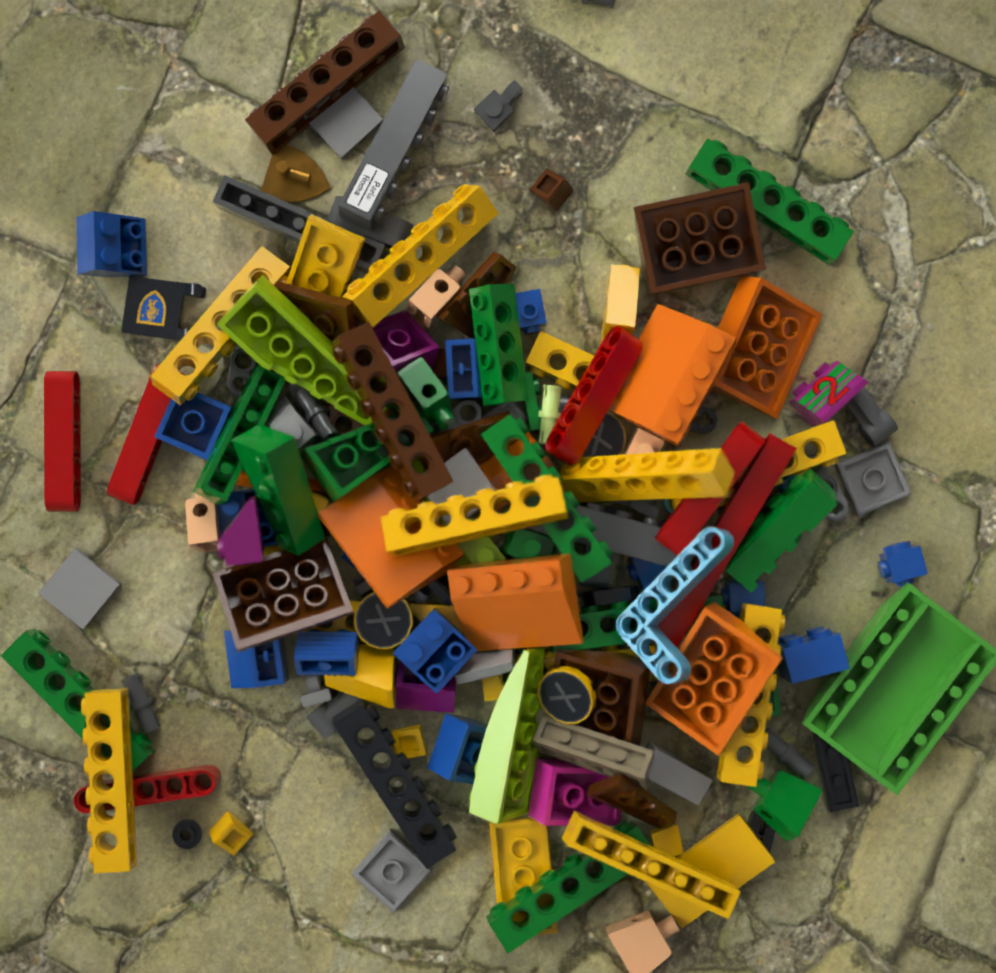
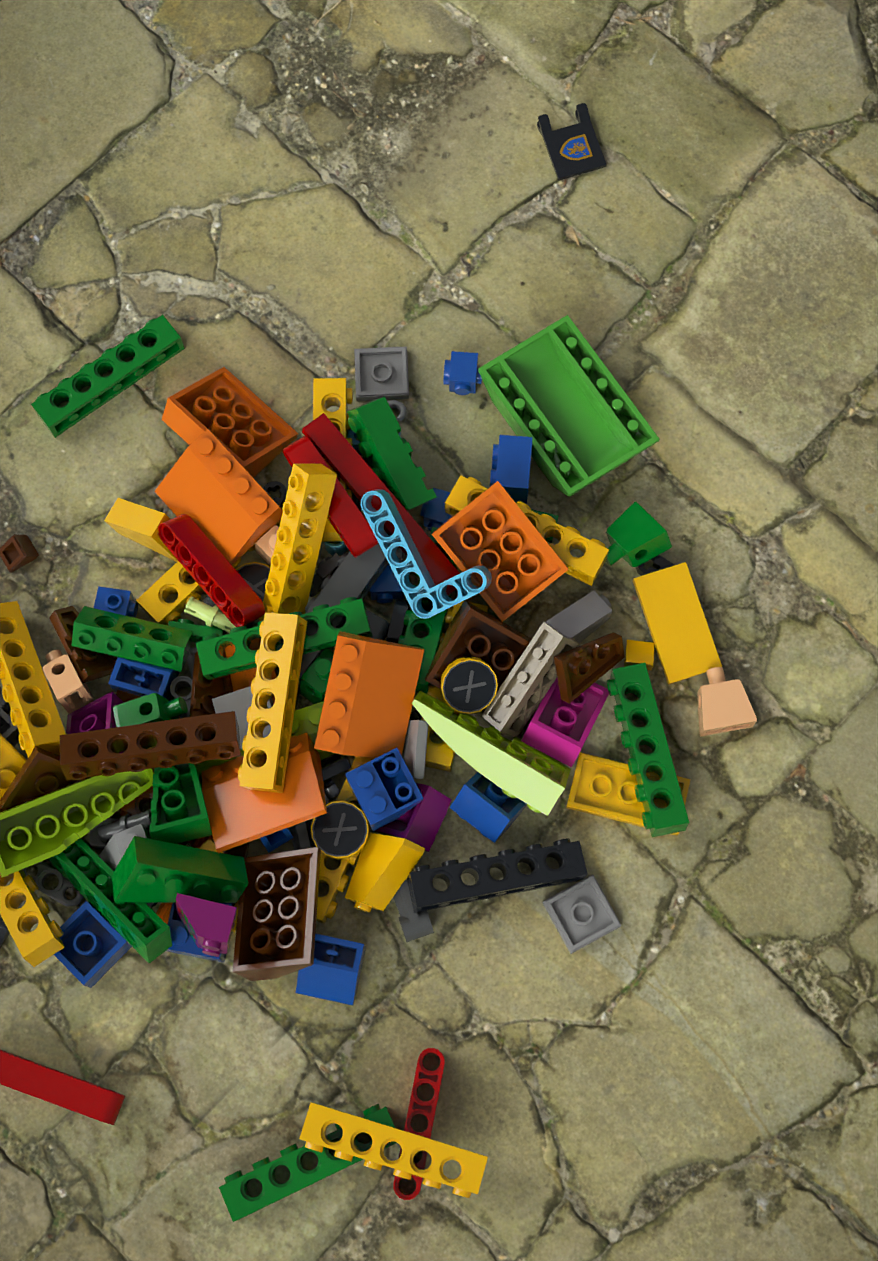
camera: 65 degrees left, 15 degrees down
(80, 588) = (201, 1122): light grey tile -> none
(139, 447) = (85, 1005): red beam -> none
(141, 703) = (336, 1100): dark grey pin -> none
(195, 830) = (477, 1111): black plate -> none
(202, 529) = (186, 969): light nougat torso -> none
(230, 833) = (492, 1059): yellow slope -> none
(316, 692) = (387, 923): light grey tile -> none
(326, 652) = (350, 891): blue brick -> none
(410, 741) = (464, 848): yellow plate -> none
(651, 864) = (647, 664): yellow brick -> none
(698, 239) = (114, 441): reddish brown slope -> none
(787, 754) = (597, 522): dark grey pin -> none
(826, 392) = (290, 382): magenta slope -> none
(836, 776) = (625, 490): black tile -> none
(873, 422) = (333, 355): dark grey piece -> none

